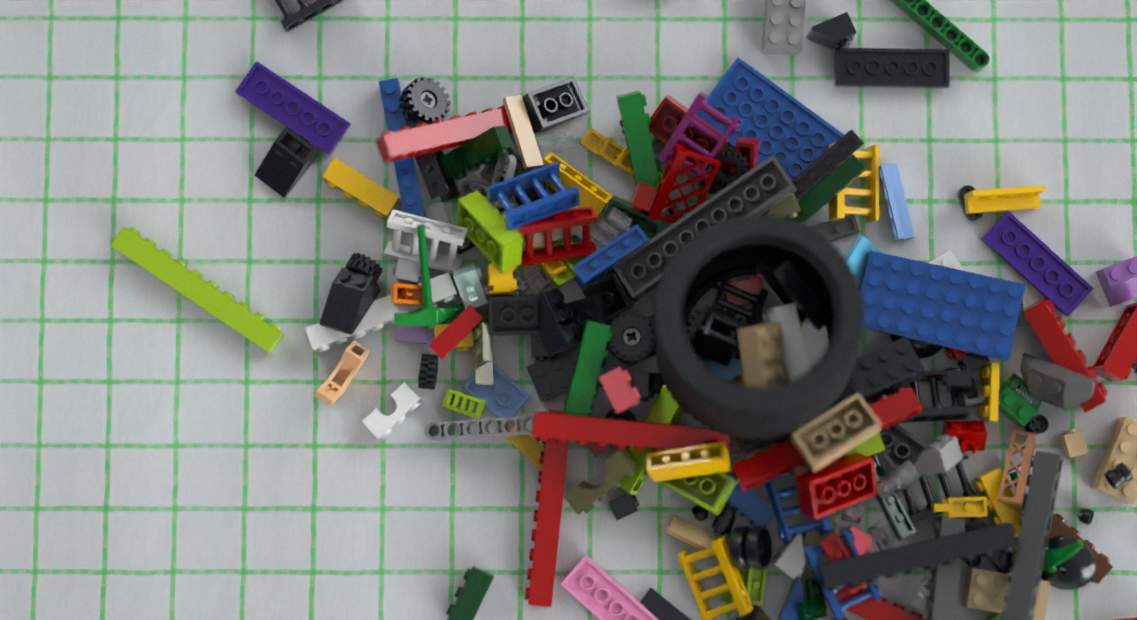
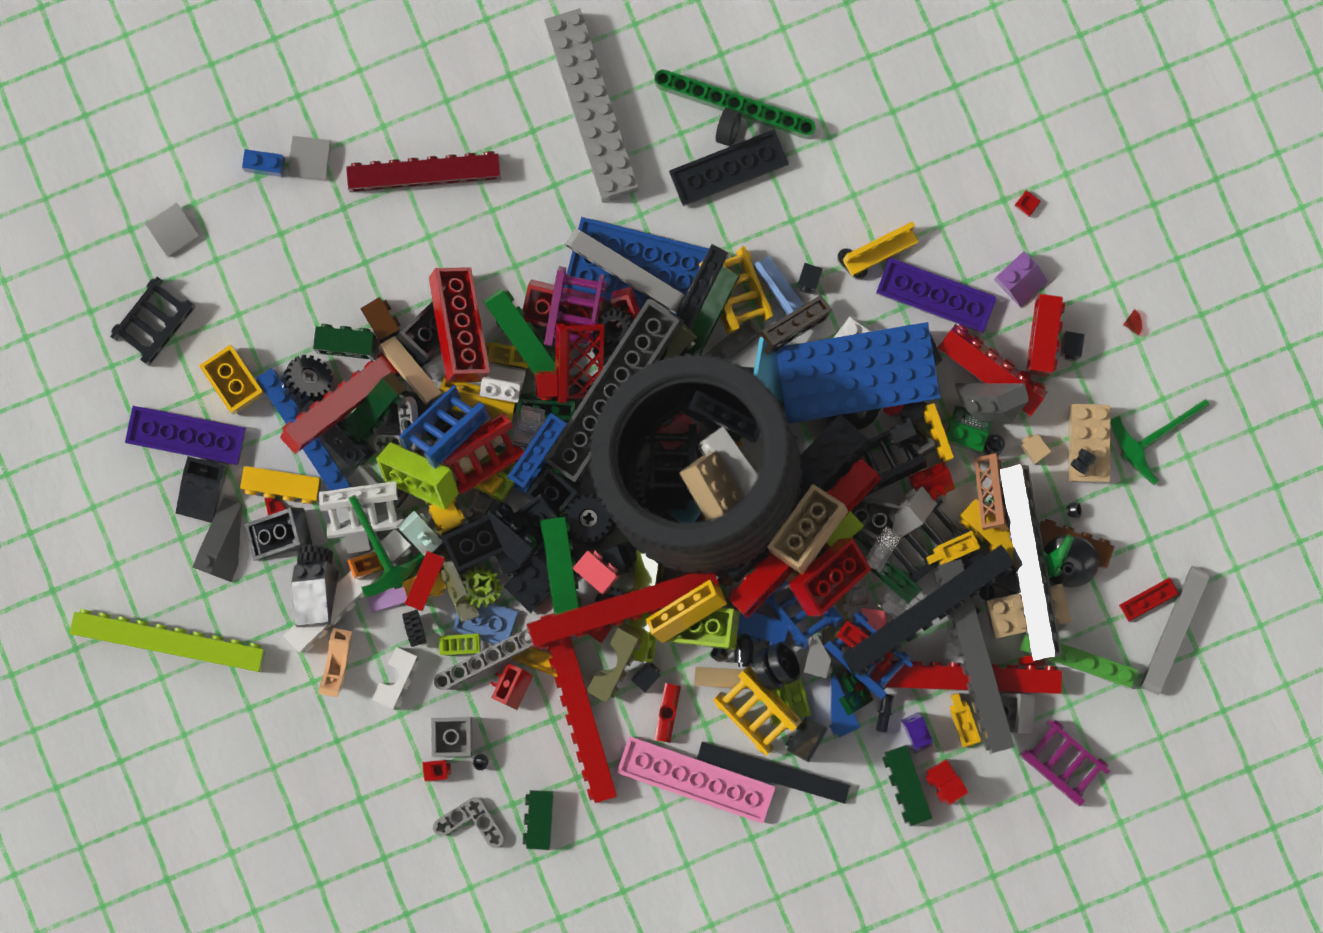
camera: 20 degrees left, 0 degrees up
(283, 221) = (221, 544): none -> dark grey wedge
(340, 232) = (278, 533): none -> black slope
(347, 207) = (273, 506): none -> red tile
(356, 74) = (232, 379): none -> yellow brick
(387, 511) = (429, 773): none -> red brick
(406, 565) = (469, 814): none -> light grey beam
(421, 486) = (451, 736): none -> light grey brick
(435, 523) = (480, 765): none -> black hinge
(473, 82) = (344, 342): none -> dark green brick
(496, 462) = (511, 686): none -> red brick
(504, 366) = (482, 594): none -> lime gear
(514, 75) = (380, 319): none -> reddish brown brick
(585, 109) = (459, 325): none -> red brick
(603, 178) = (503, 383): none -> white panel
(622, 558) = (669, 699): none -> red piece
(758, 121) = (625, 270): none -> light grey beam
(833, 32) = (660, 157): black slope -> none
(898, 236) = (795, 324): none -> dark brown fence
(907, 29) = (728, 127): none -> black tyre
(925, 199) = (809, 278): none -> black brick

